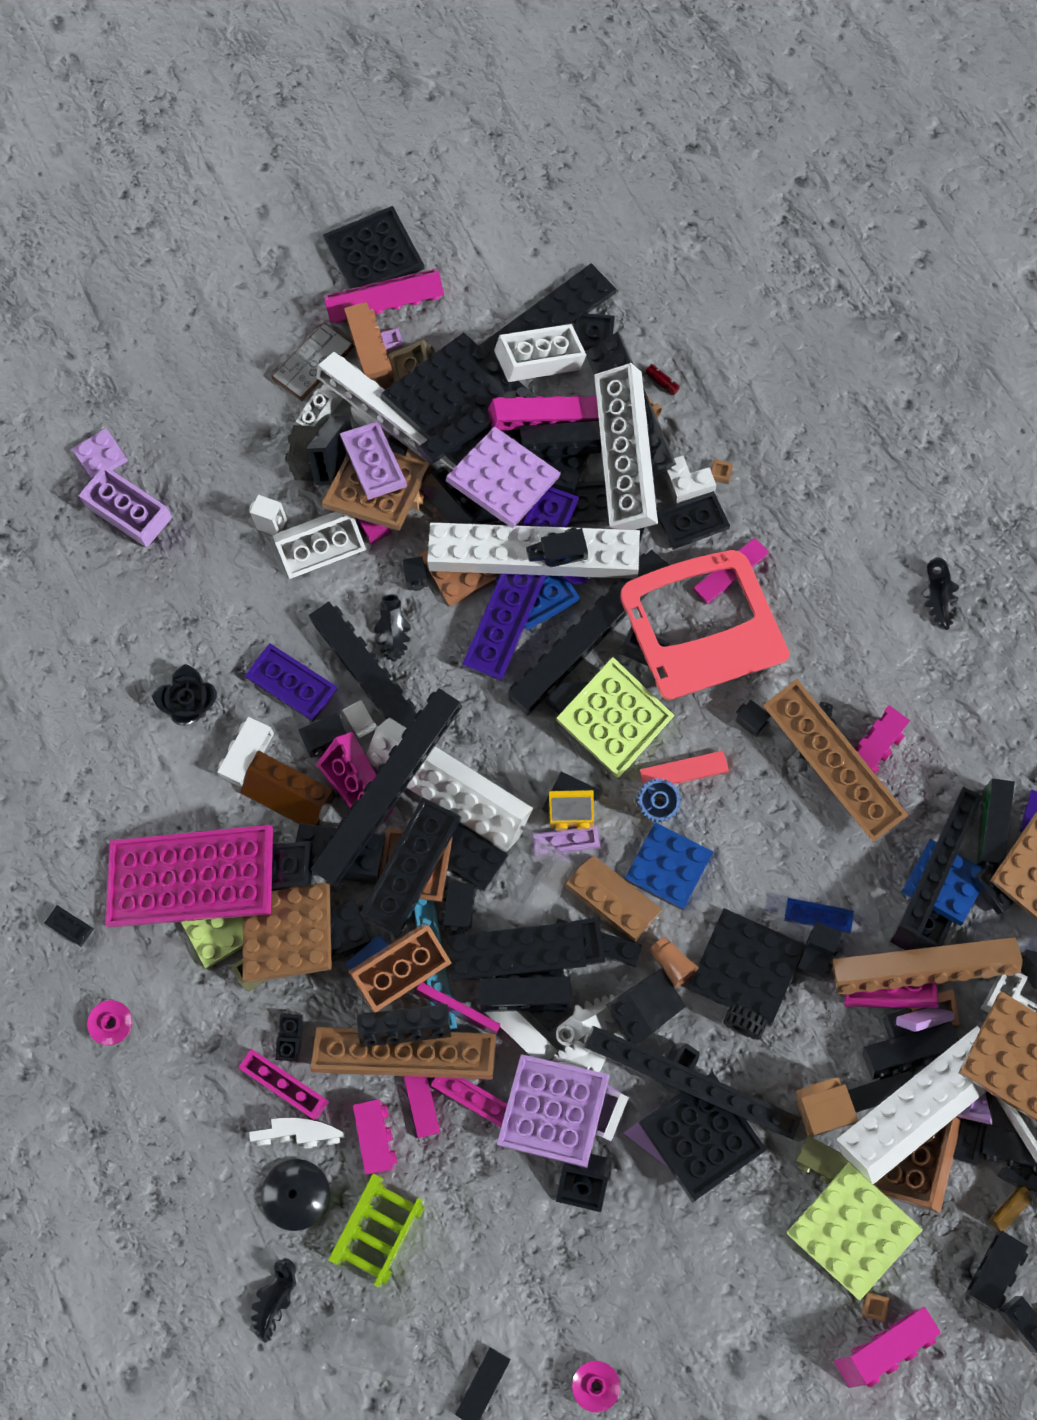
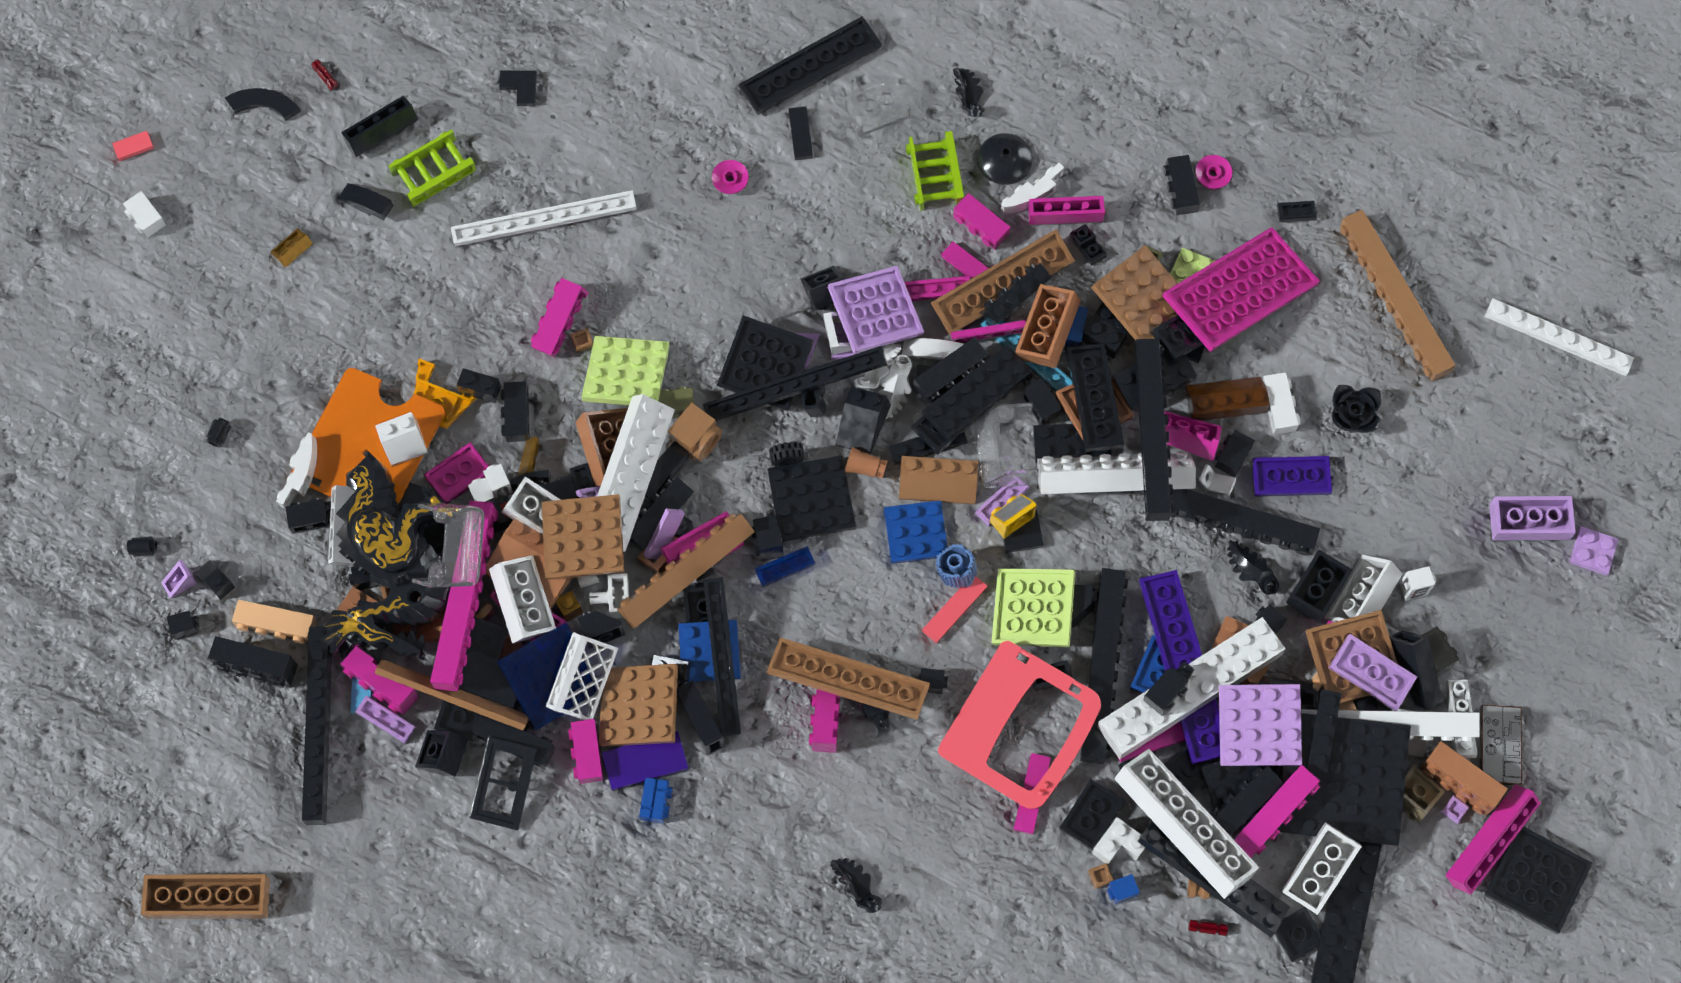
camera: 140 degrees right, 0 degrees up
(54, 781) = (1397, 295): none -> medium nougat brick
(150, 1031) = (1181, 185): none -> black brick
(351, 570) = (1319, 586): none -> black brick
(711, 446) = (1123, 889): none -> blue brick

